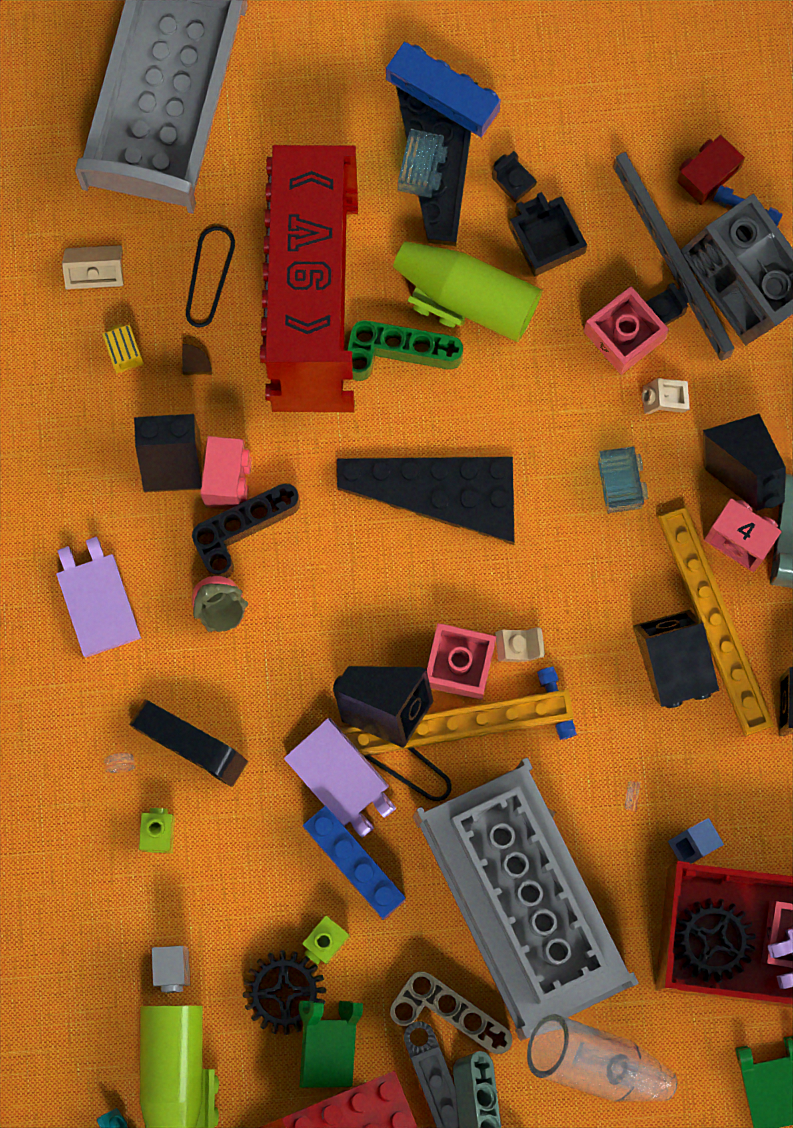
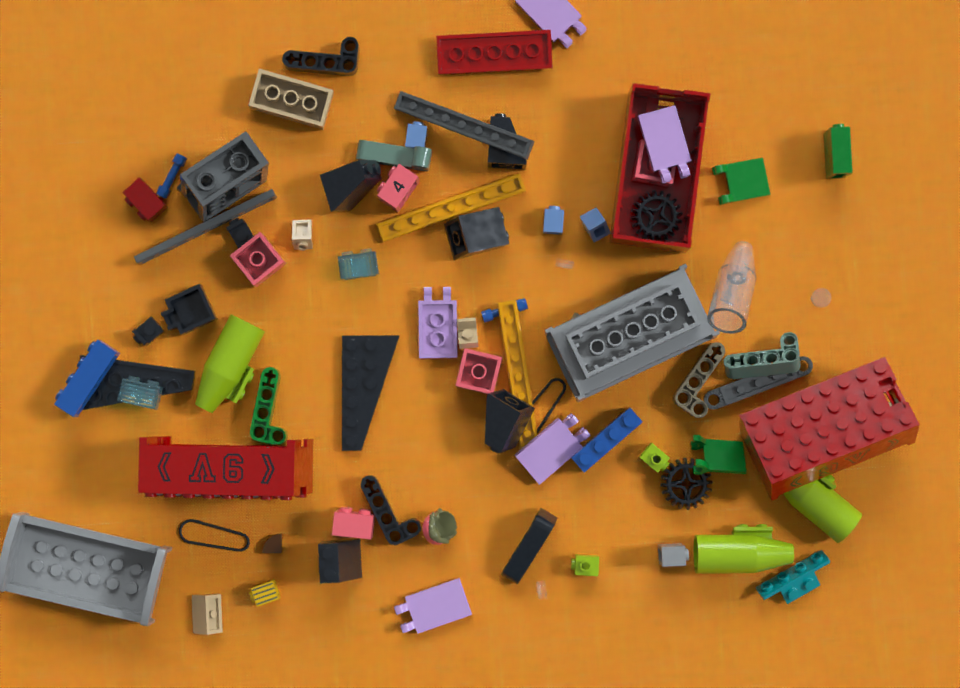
camera: 90 degrees left, 10 degrees up
(531, 600) = (437, 325): none -> lavender tile
(700, 777) = (553, 220): none -> medium blue brick

